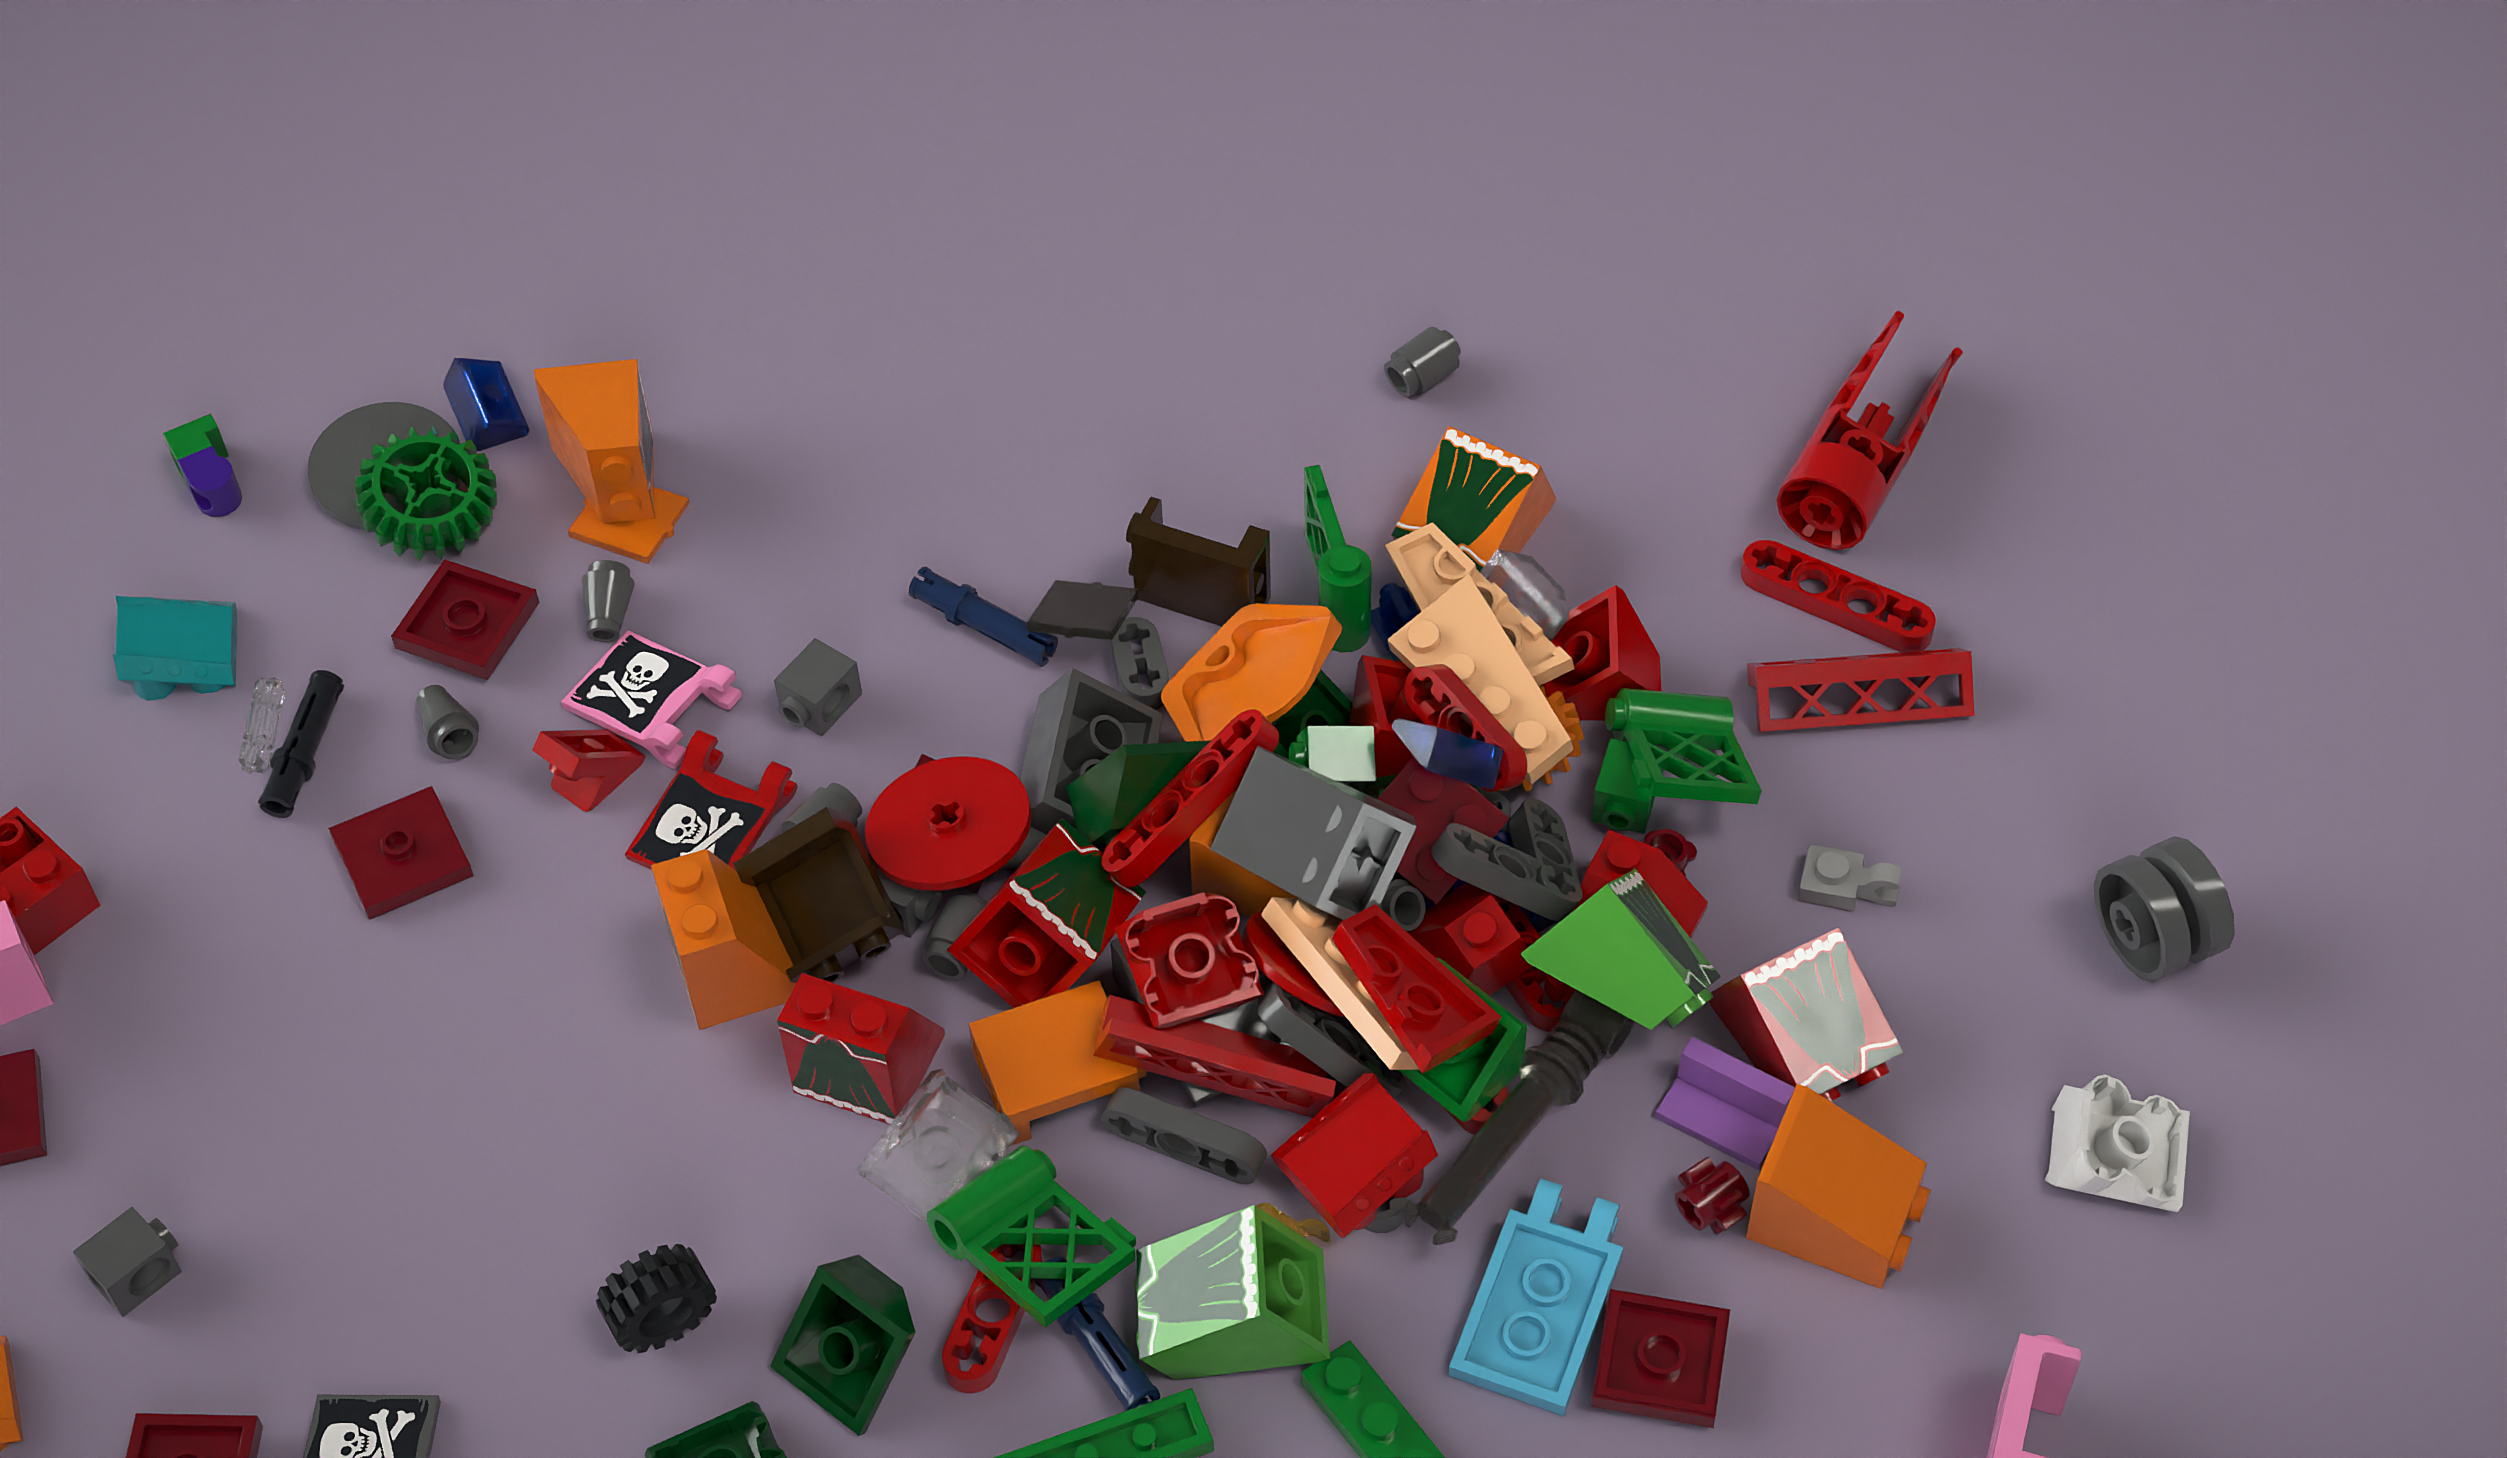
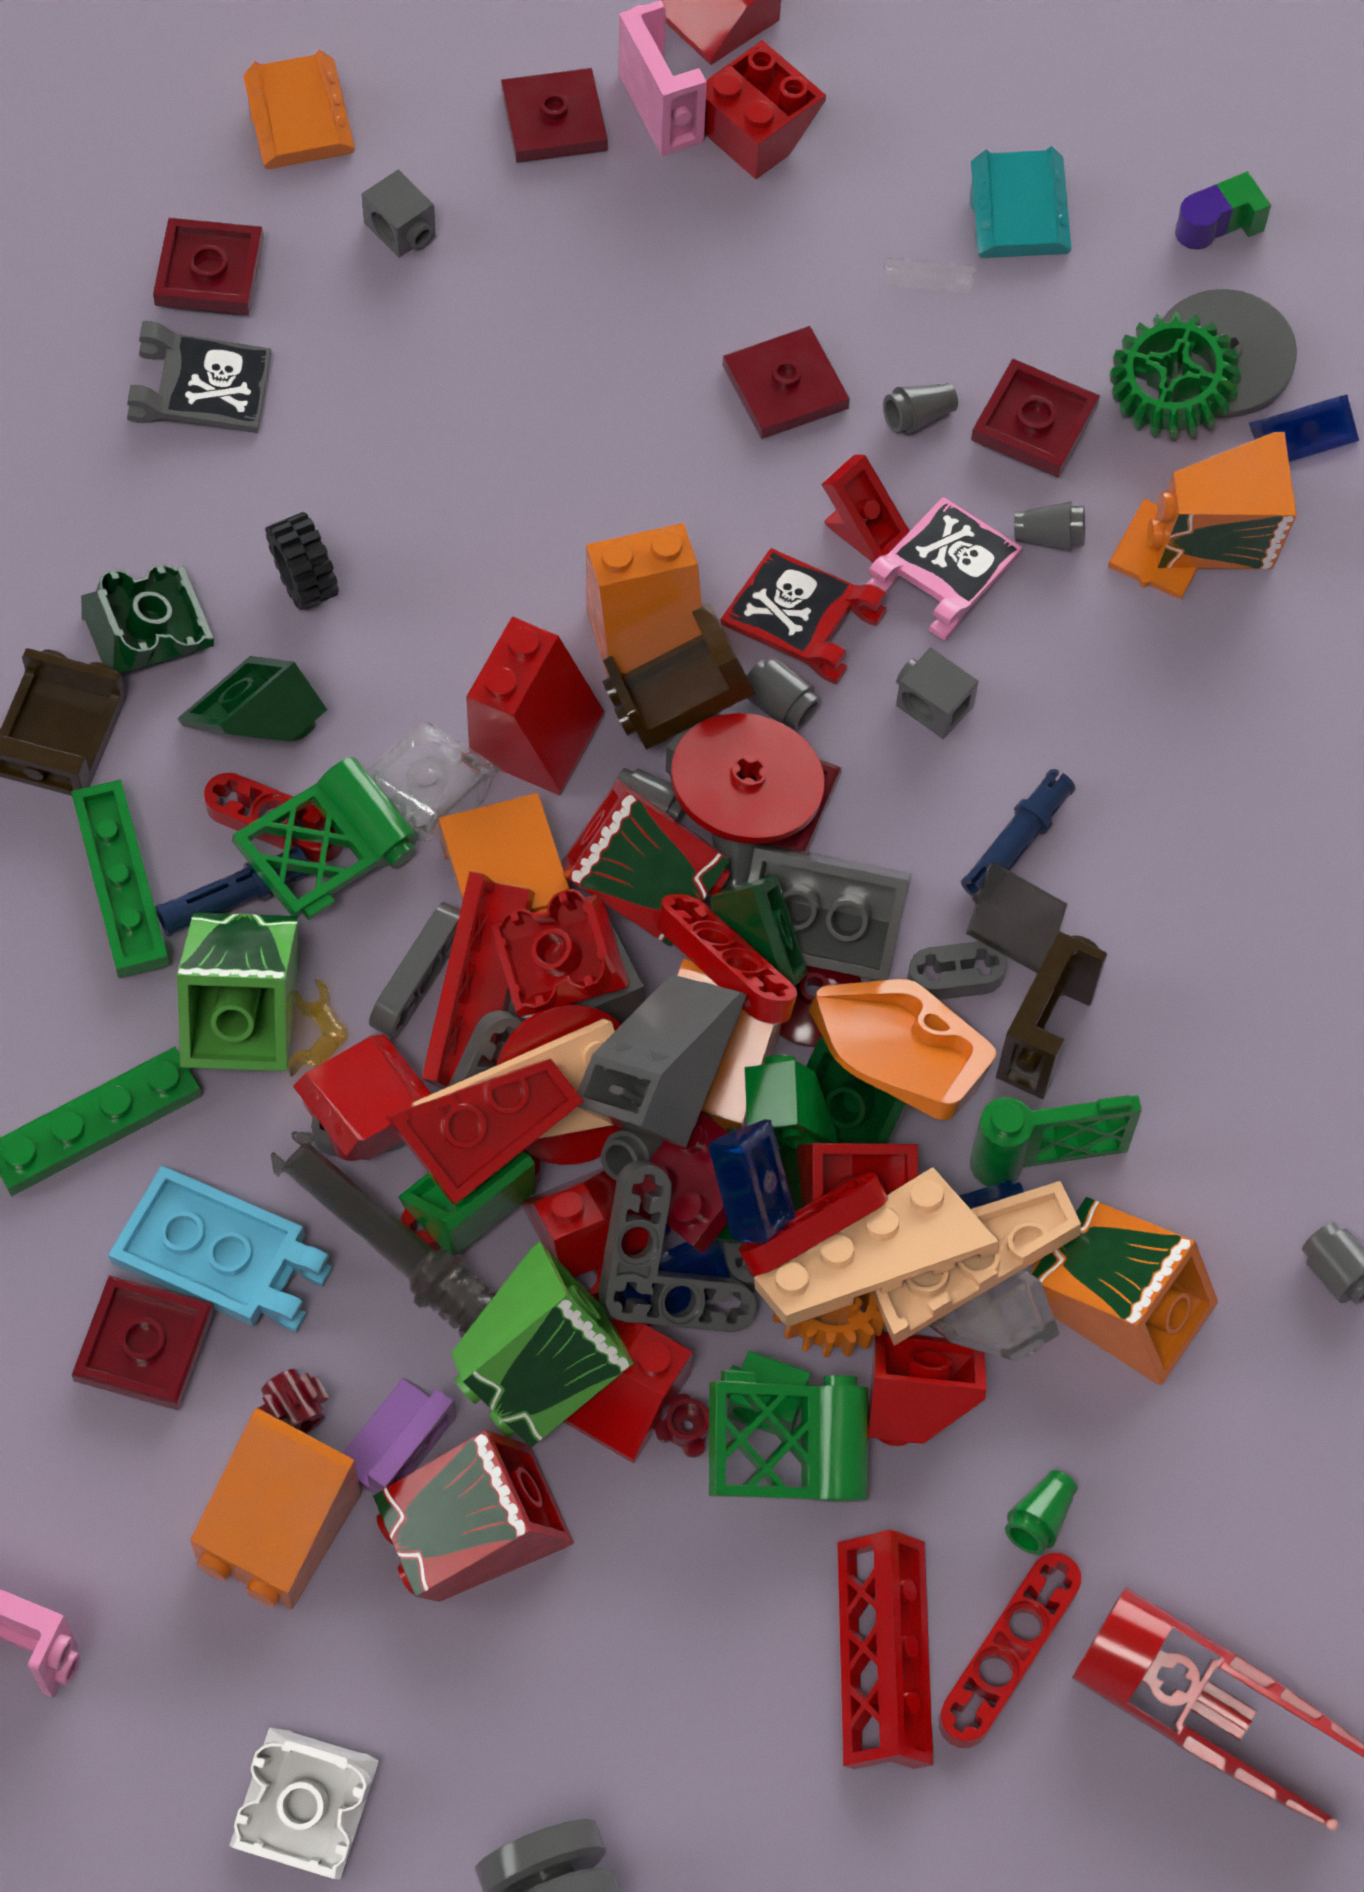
camera: 90 degrees right, 10 degrees up
(294, 760) = (903, 302): black pin -> none
(1705, 572) = (1040, 1515): none -> green cone
(1839, 877) = (648, 1590): light grey plate -> none

